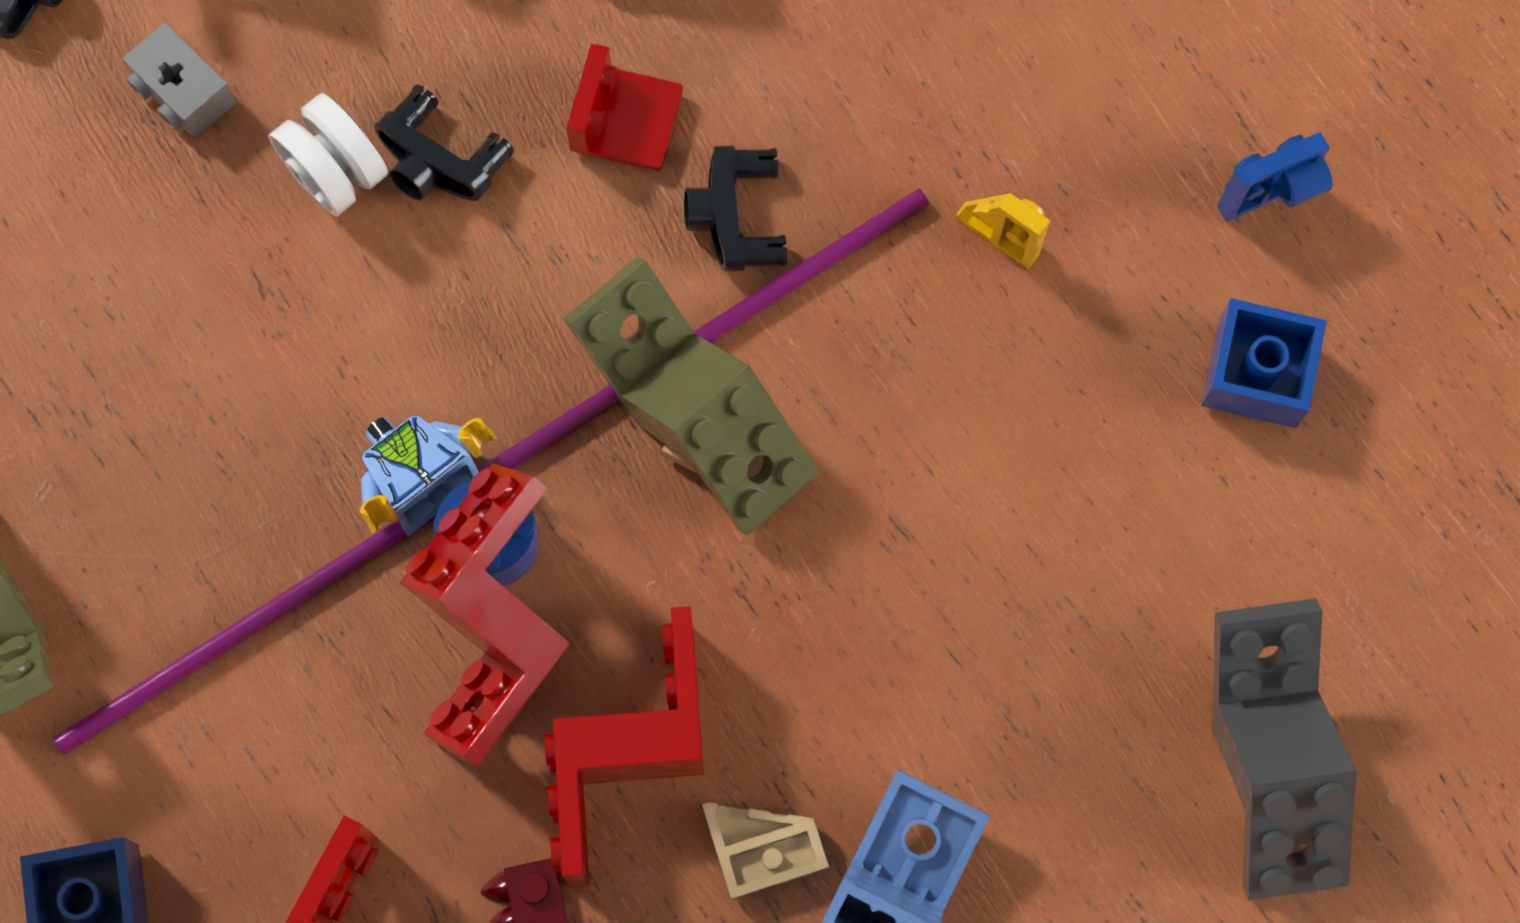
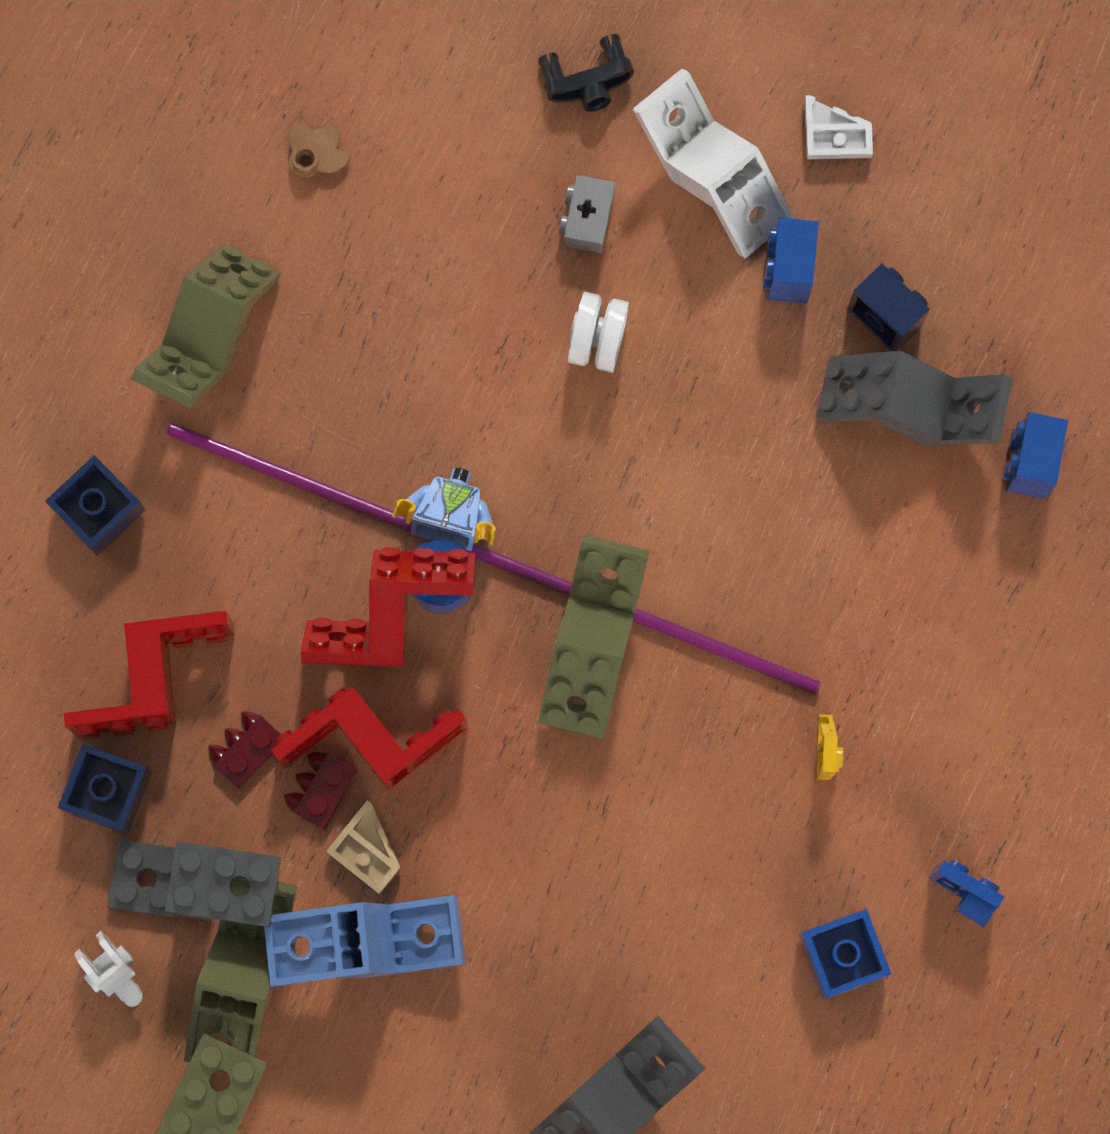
camera: 55 degrees right, 5 degrees up
(427, 163) = (635, 389): black connector -> none
(622, 113) = (745, 479): red bracket -> none
(648, 854) = (322, 789): none -> dark red plate
(716, 209) = (723, 572): black connector -> none

